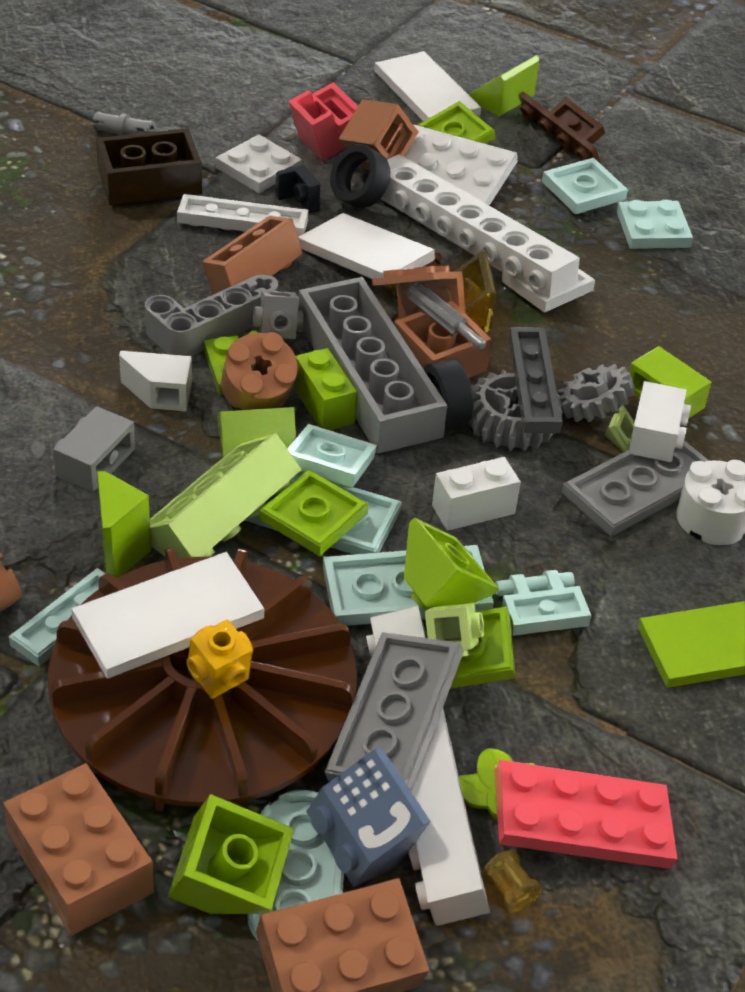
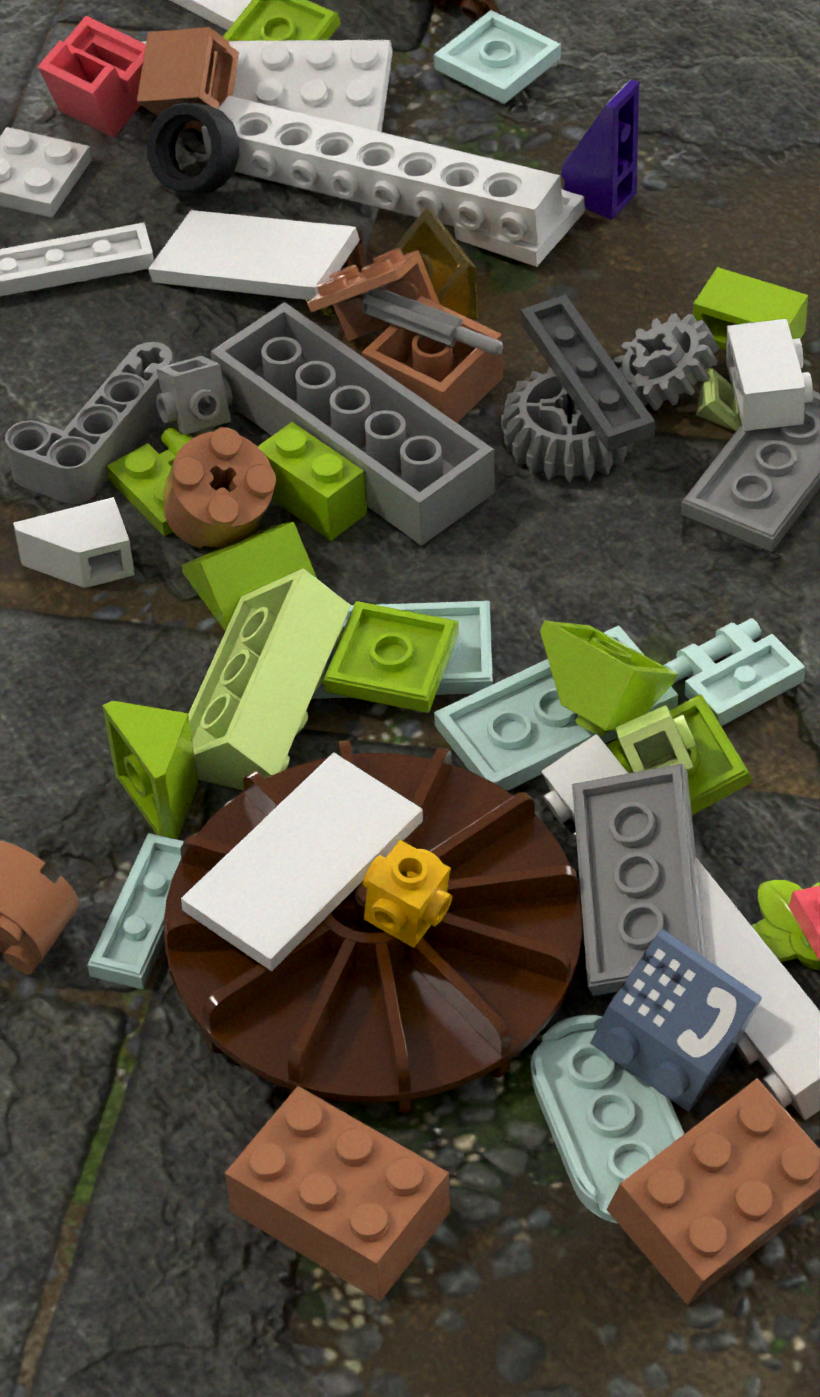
camera: 15 degrees left, 5 degrees up
(94, 445) = (49, 673): light grey brick -> none
(231, 860) = (532, 1135): lime slope -> none
(258, 251) = (110, 318): nougat brick -> none
(301, 185) = (112, 186): black bracket -> none
(332, 455) = (371, 569): light aqua plate -> none
(455, 388) = (489, 419): black tyre -> none
(475, 493) = (581, 556): white brick -> none
(619, 256) = (607, 156): none -> dark purple slope
(654, 224) = (600, 75): light aqua plate -> none

